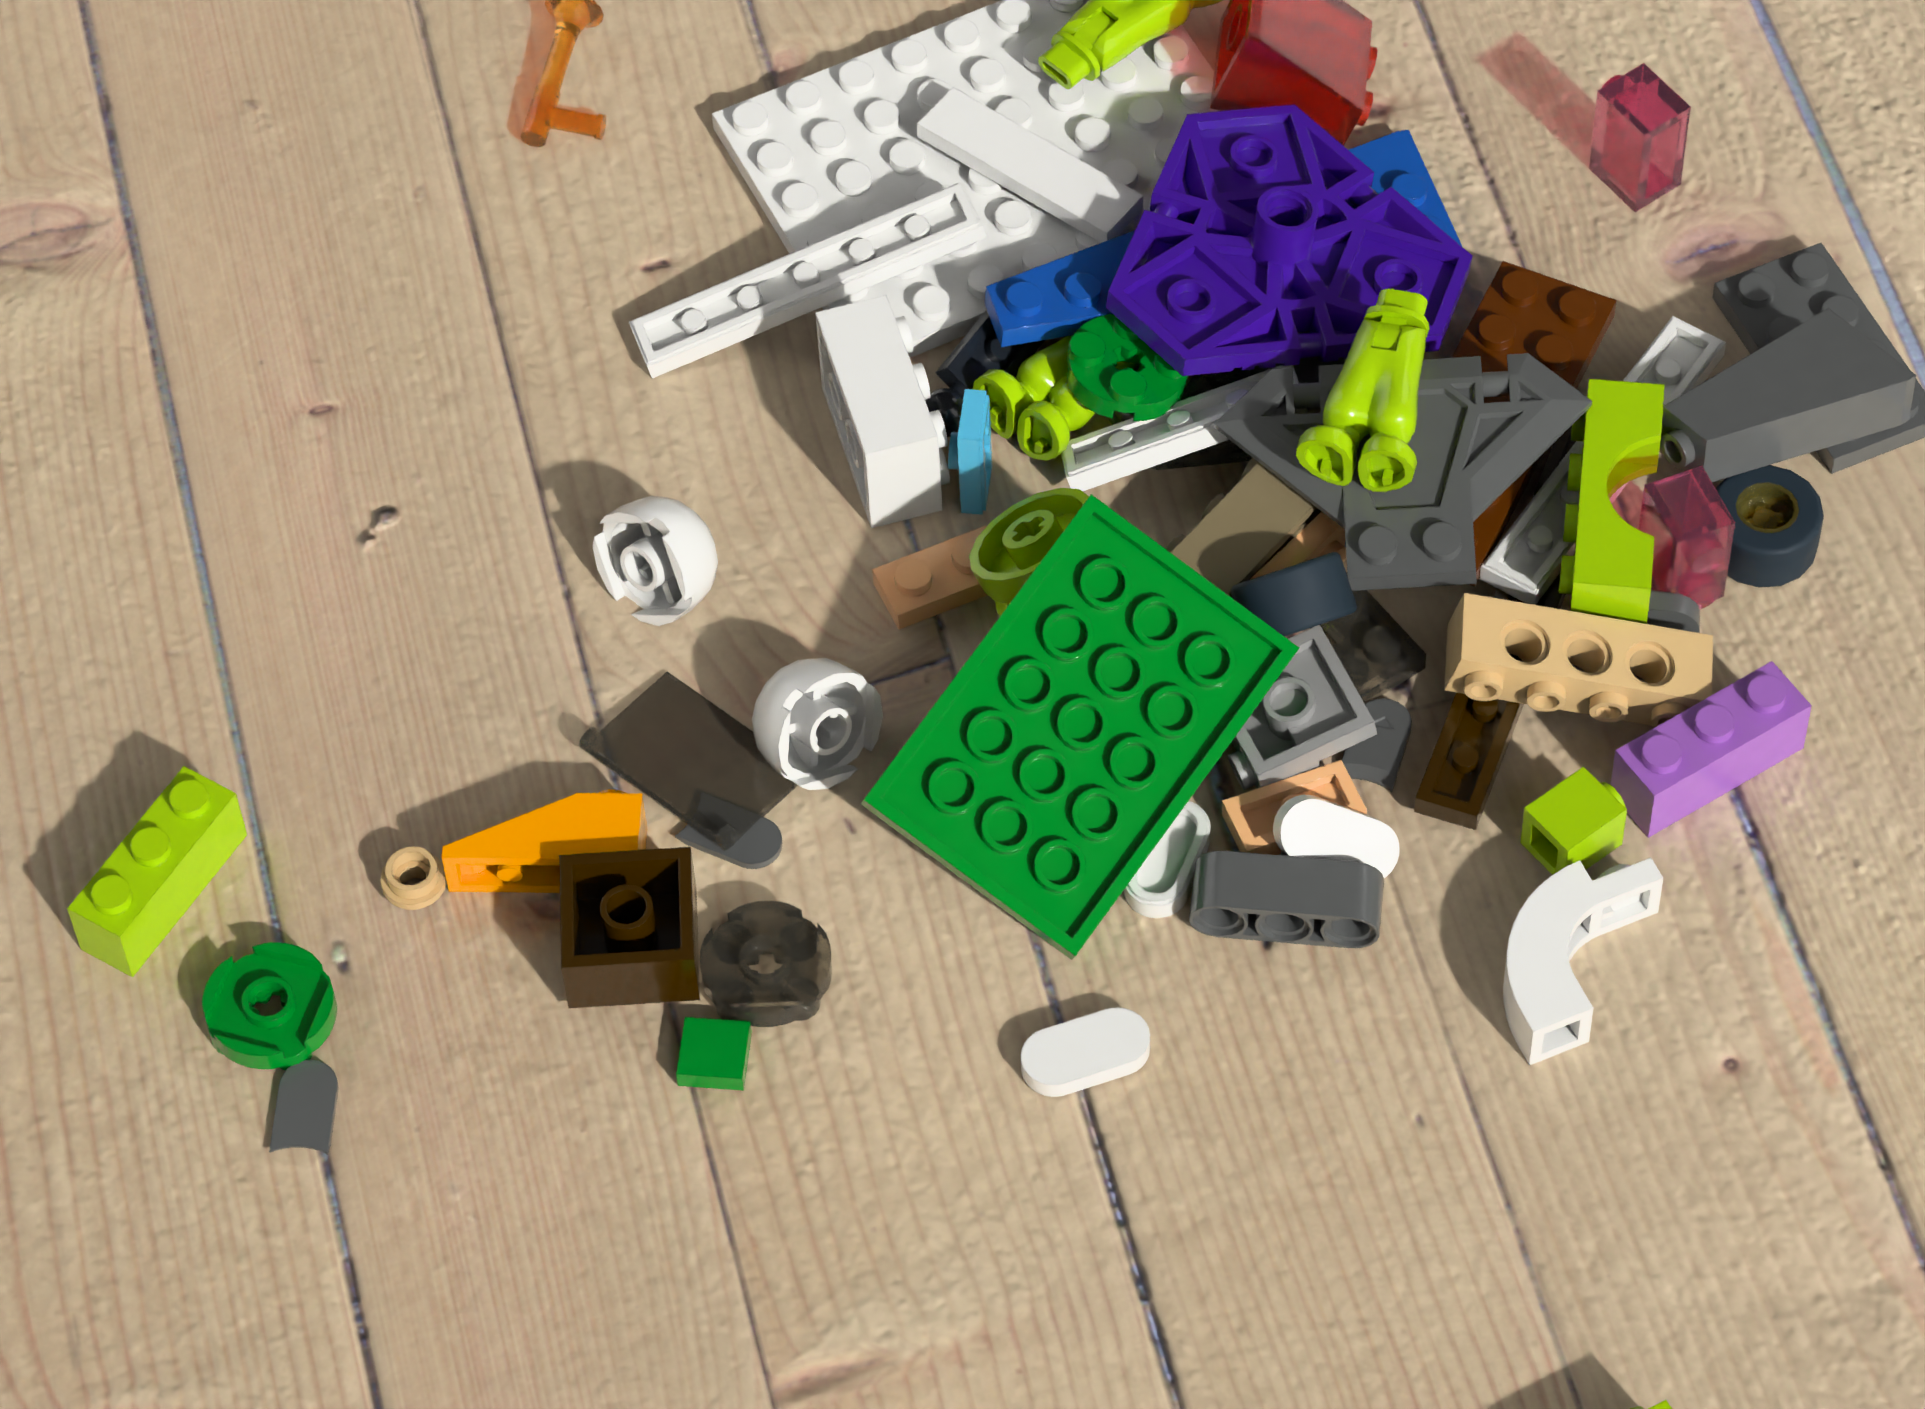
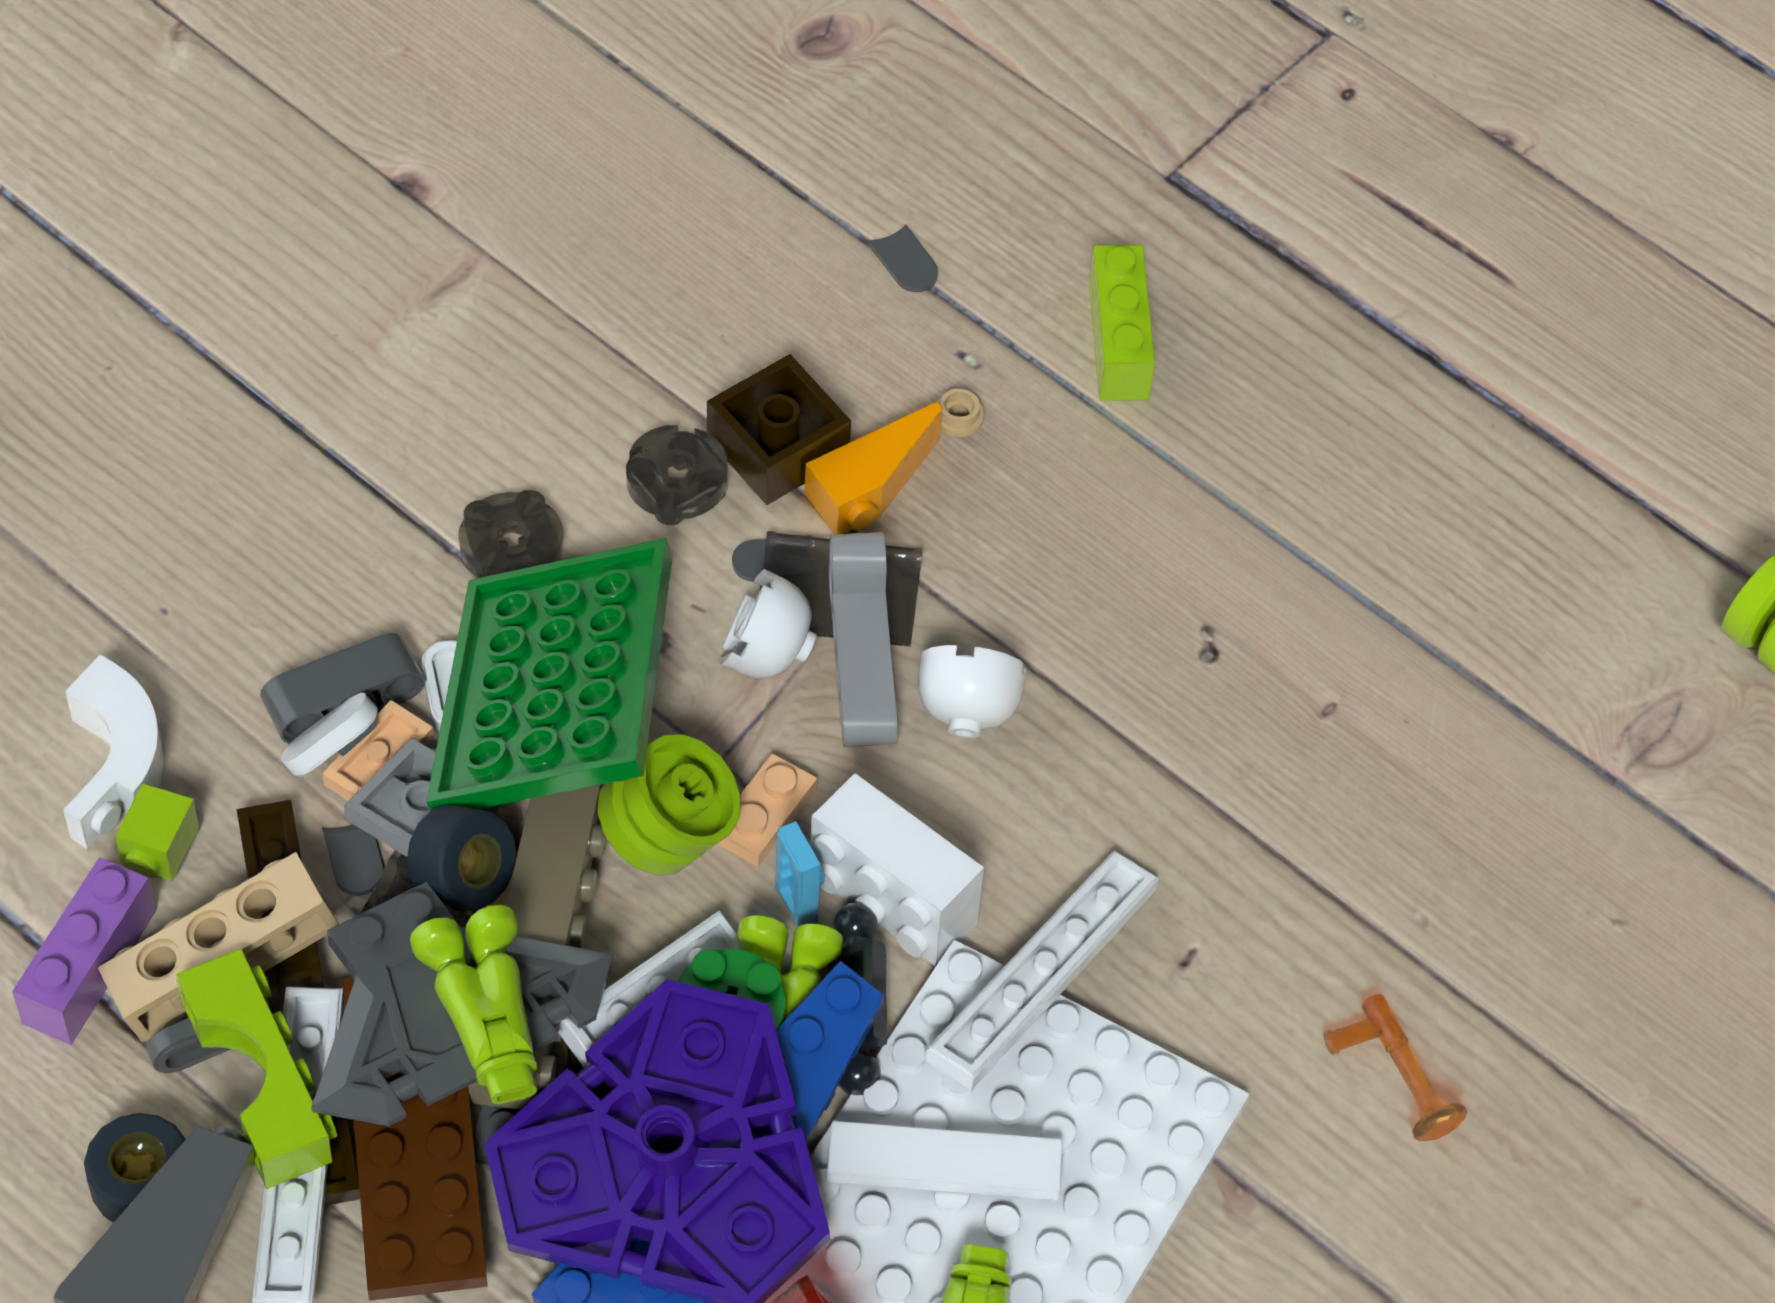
camera: 140 degrees right, 0 degrees up
(275, 1039) = (978, 315): green plate -> none
(698, 698) = (862, 639): none -> light grey beam
(714, 1053) = (670, 405): green tile -> none
(988, 957) = (503, 514): none -> clear smoke plate
(1085, 1052) = (420, 530): white tile -> none
(1690, 535) = (188, 1083): clear pink piece -> none

